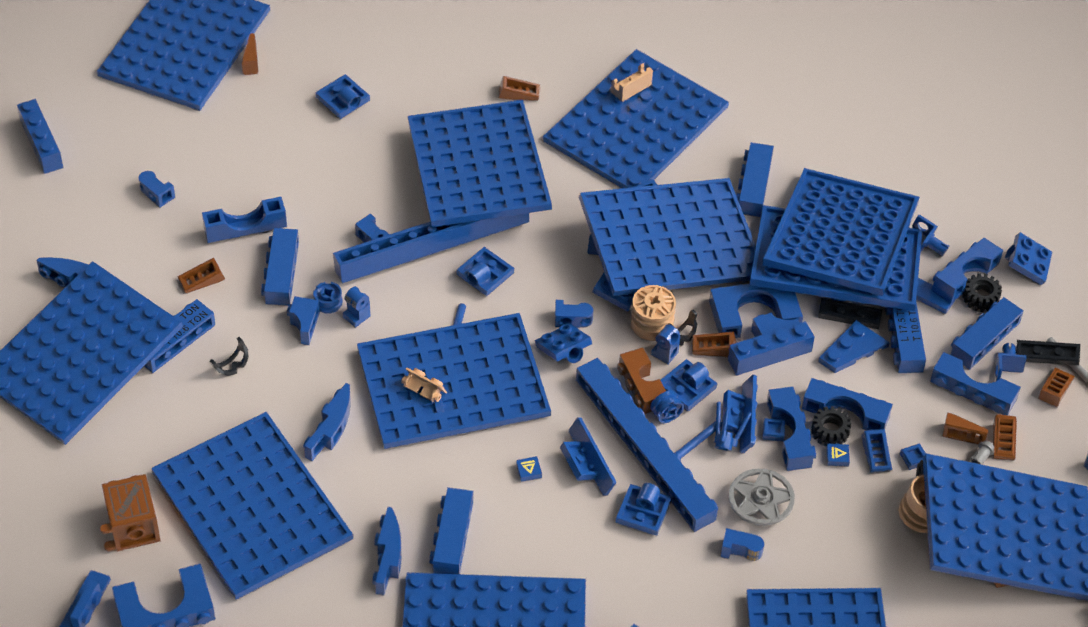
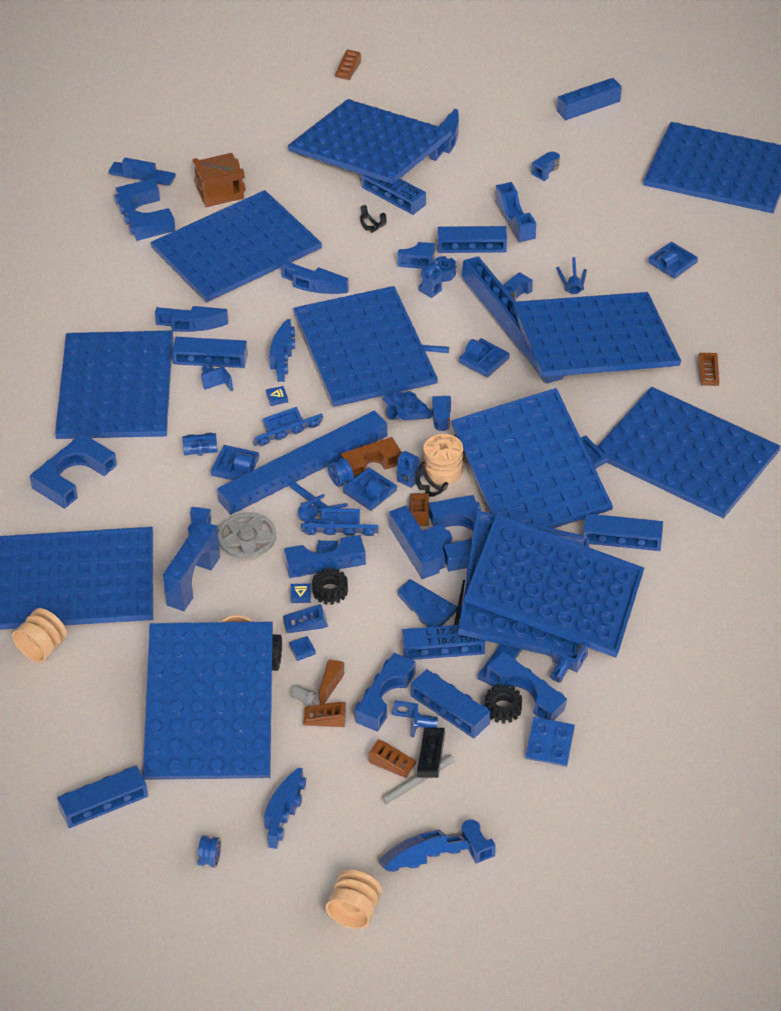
camera: 90 degrees right, 5 degrees down
(210, 279) = (461, 202): dark orange slope -> none
(250, 60) = (699, 198): dark orange slope -> none
(372, 182) = (574, 284): none -> blue plant
(416, 380) = (350, 322): light nougat hinge -> none
(457, 462) = (281, 349): none -> blue slope
(495, 529) = (214, 377): none -> blue bracket
(613, 541) = (200, 444): none -> blue hips
(632, 84) = (722, 436): light nougat hinge -> none
(844, 542) = (198, 550): none -> blue arch
(871, 411) = (345, 613): blue arch -> none

